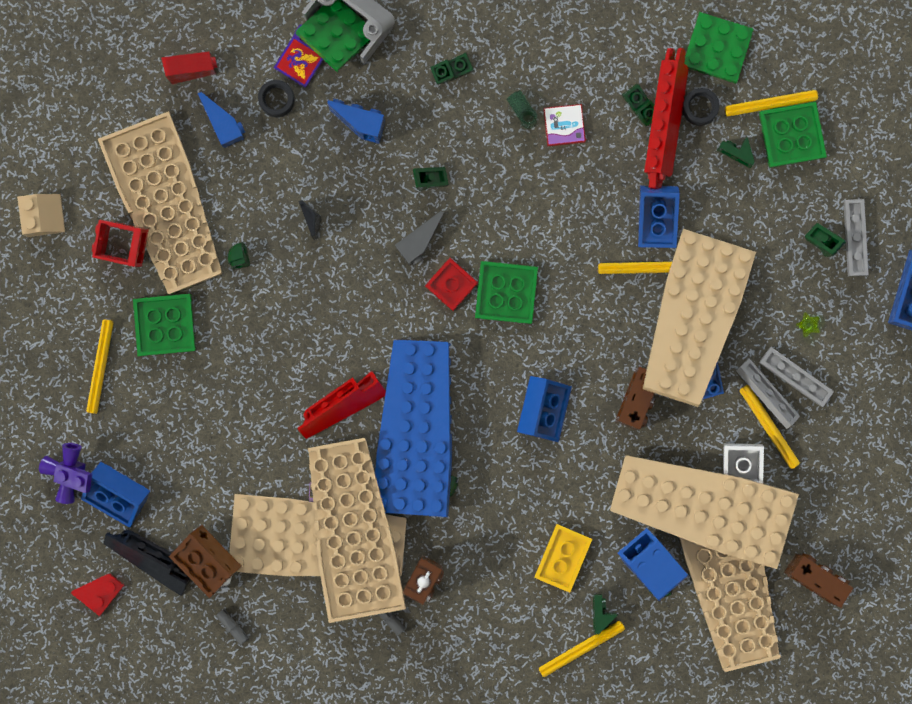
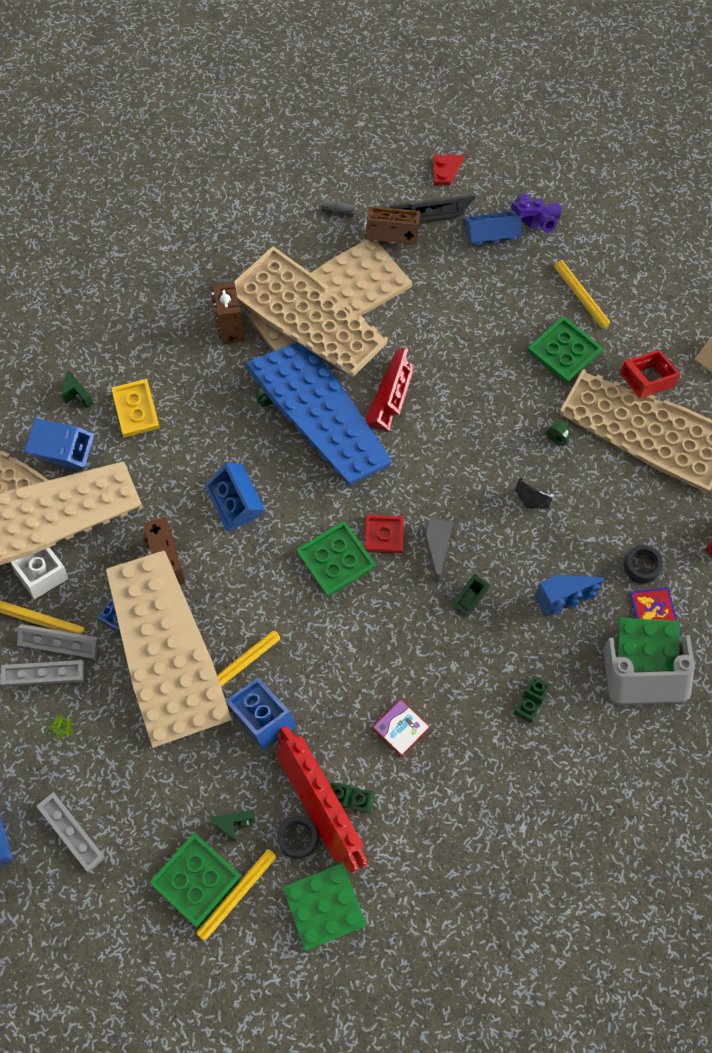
camera: 140 degrees right, 20 degrees down
(224, 124) = (662, 513): blue slope -> none
(522, 108) = (448, 711): clear green piece -> none
(581, 649) = (73, 360): yellow axle -> none
(825, 240) = (97, 804): dark green slope -> none

